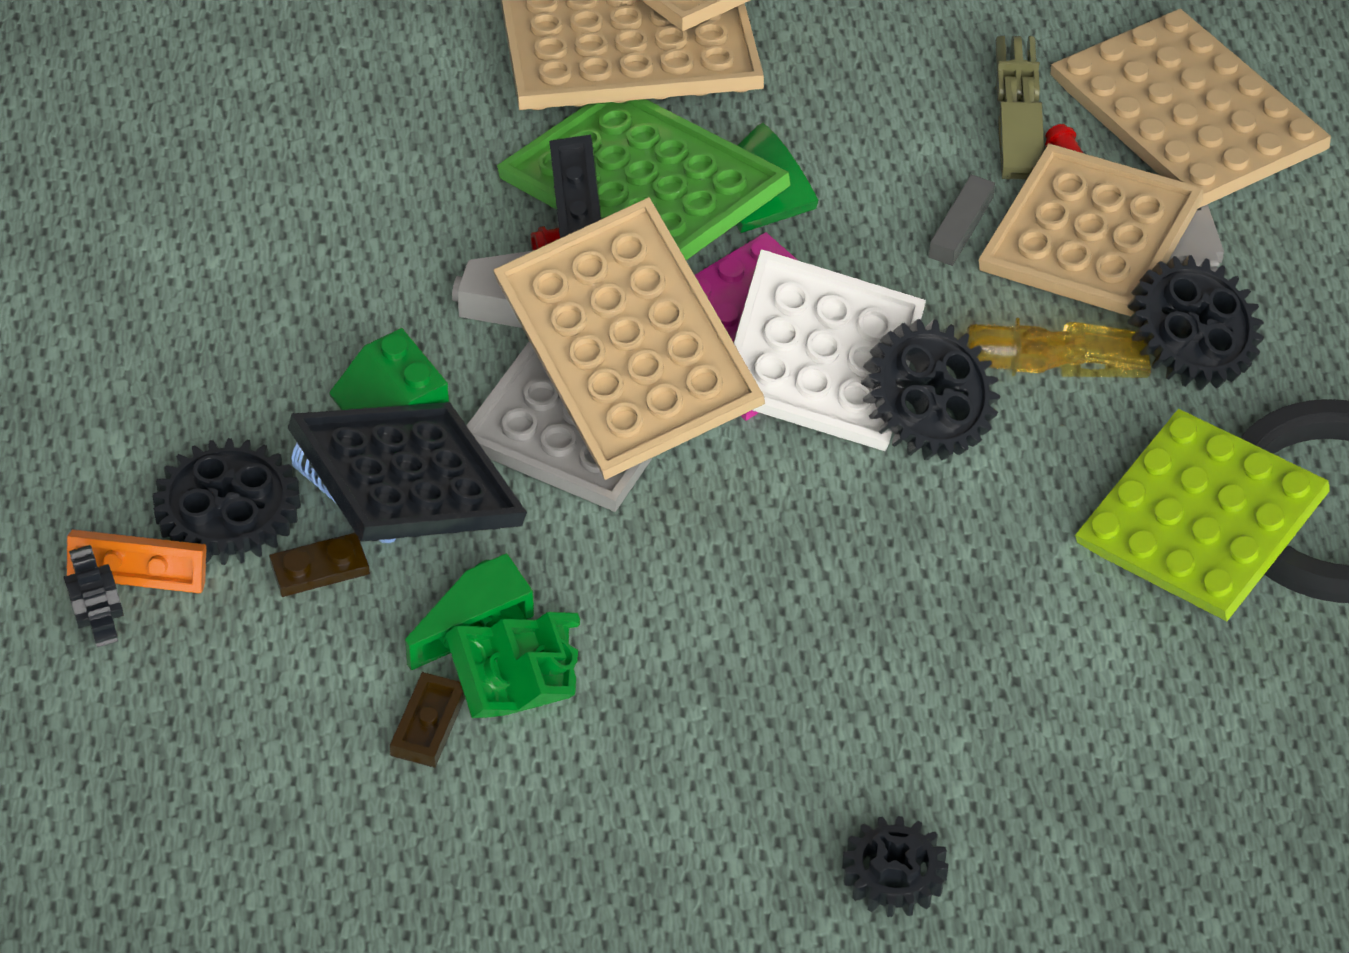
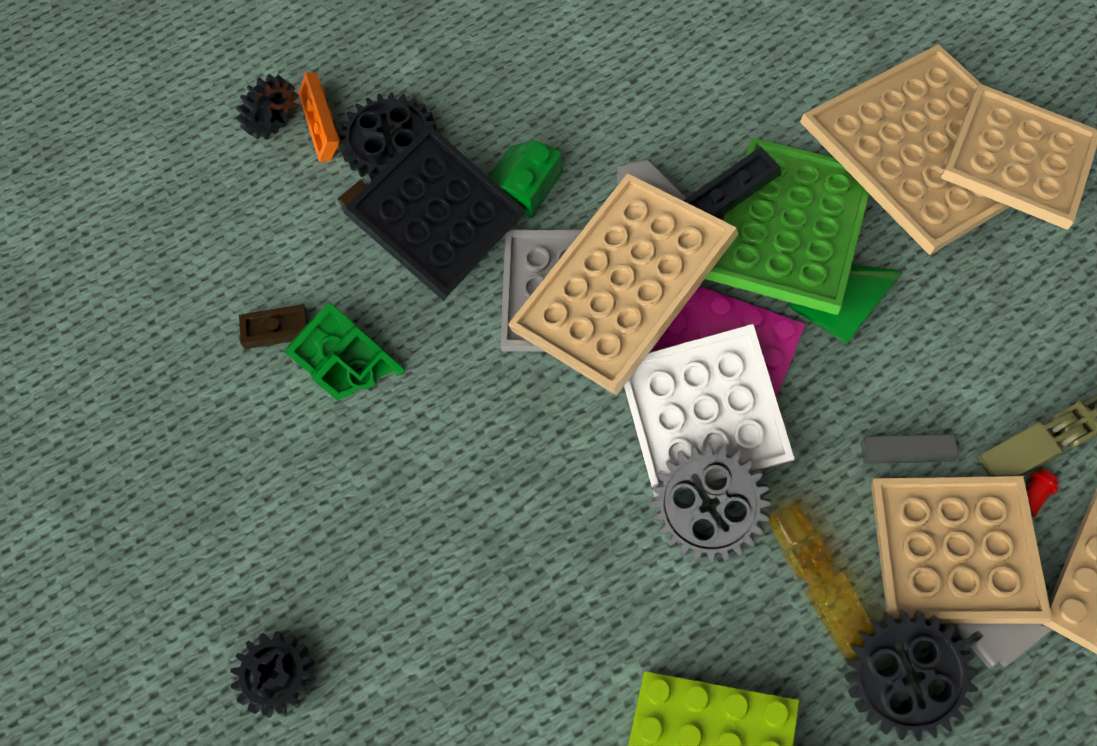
camera: 70 degrees right, 15 degrees up
(478, 598) = (371, 307): green slope -> none

